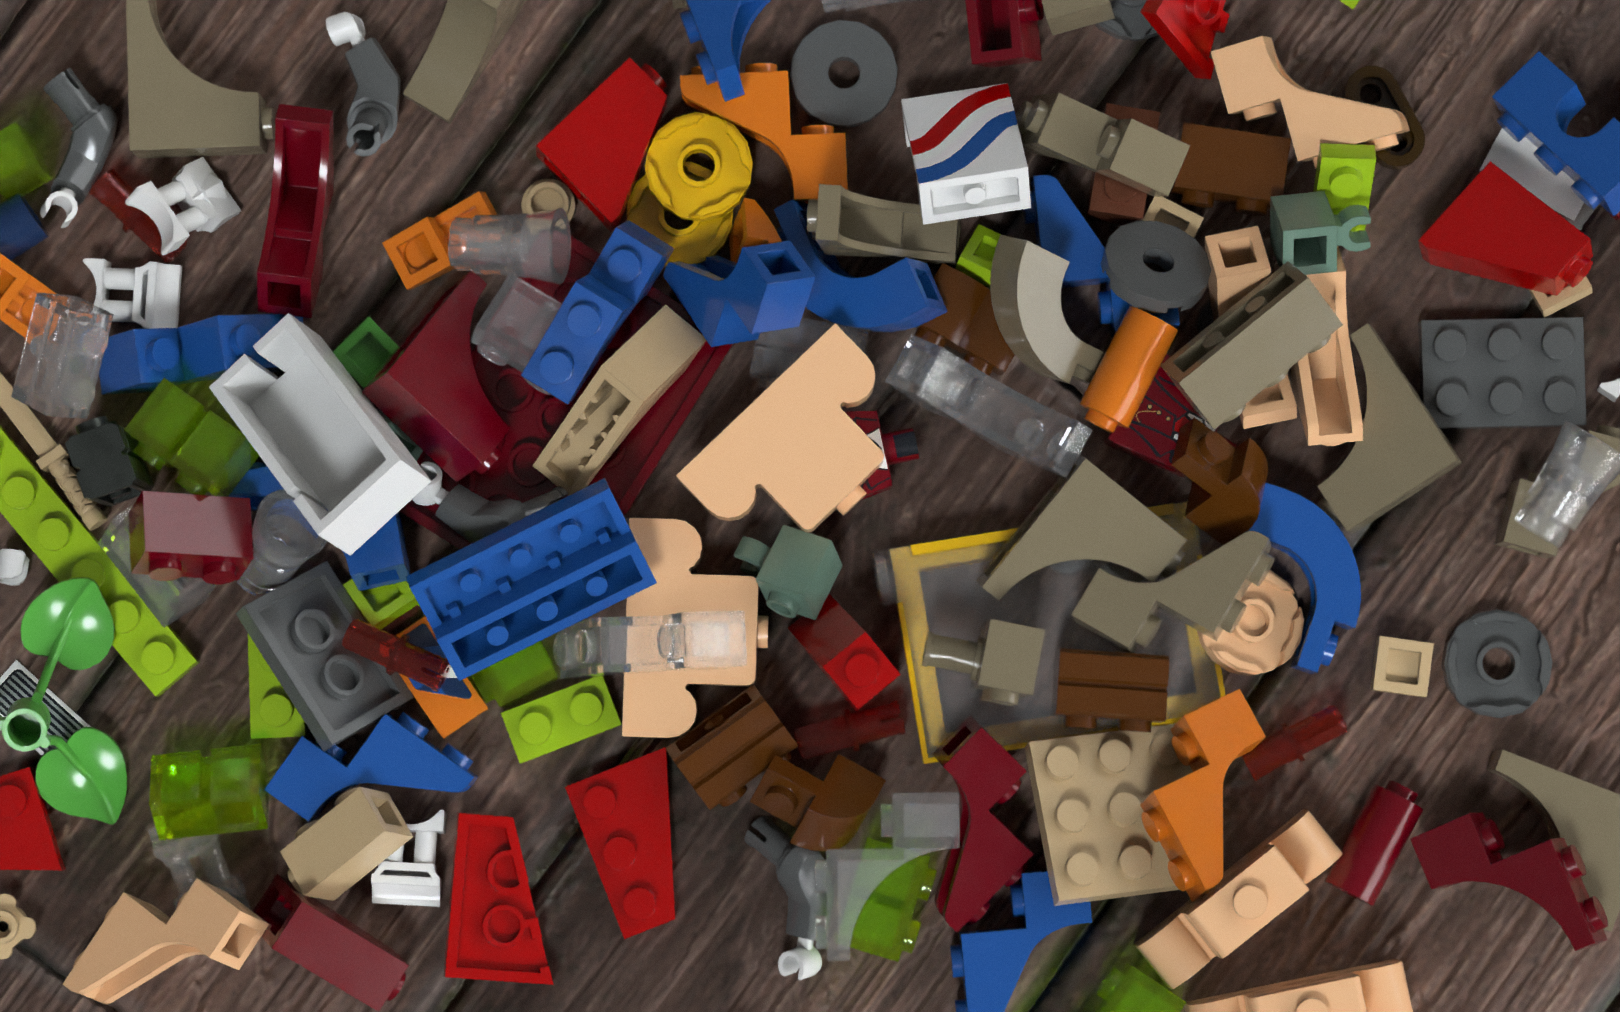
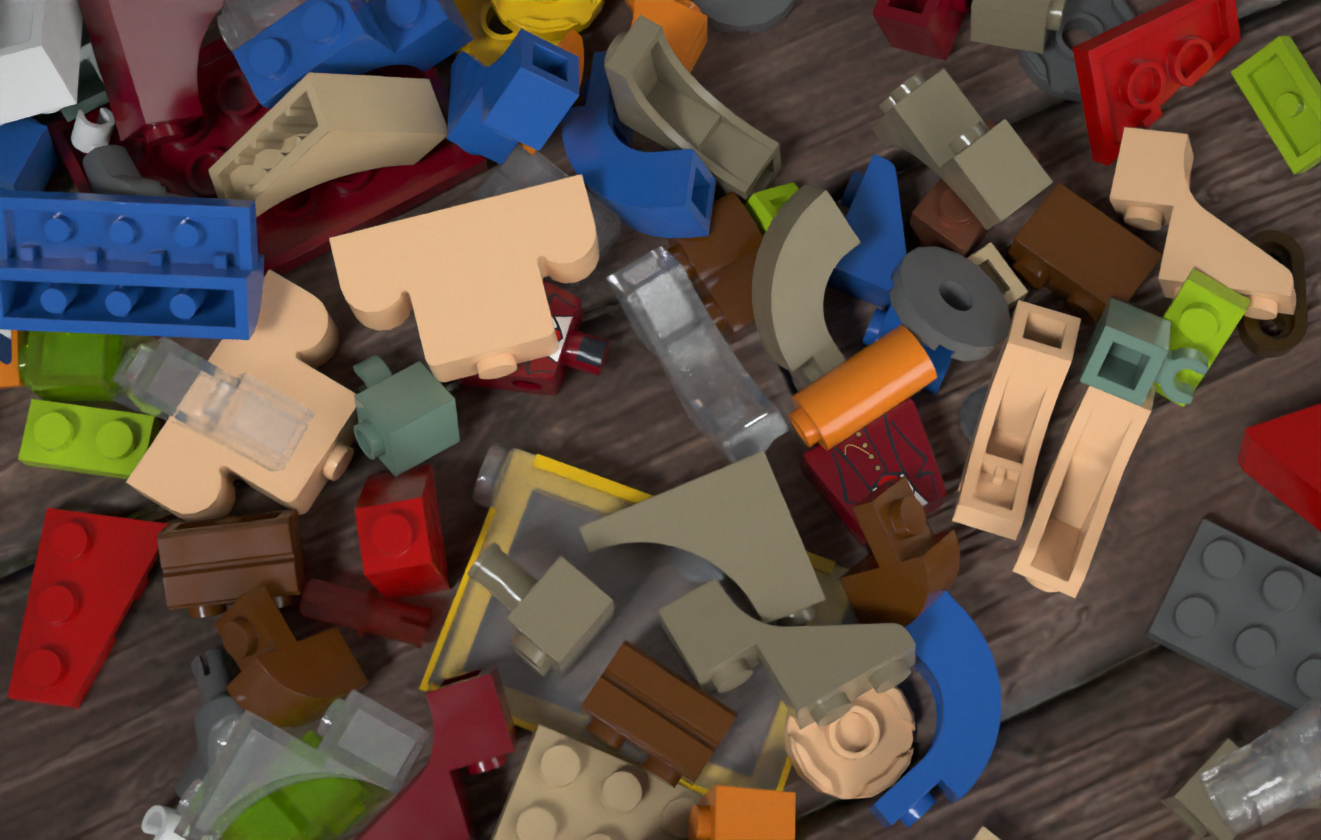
camera: 35 degrees right, 10 degrees down
(966, 153) = (814, 95): panel -> none
(1252, 345) = (1009, 431): dark tan brick -> none
(1399, 446) = (1103, 638): dark tan arch -> none

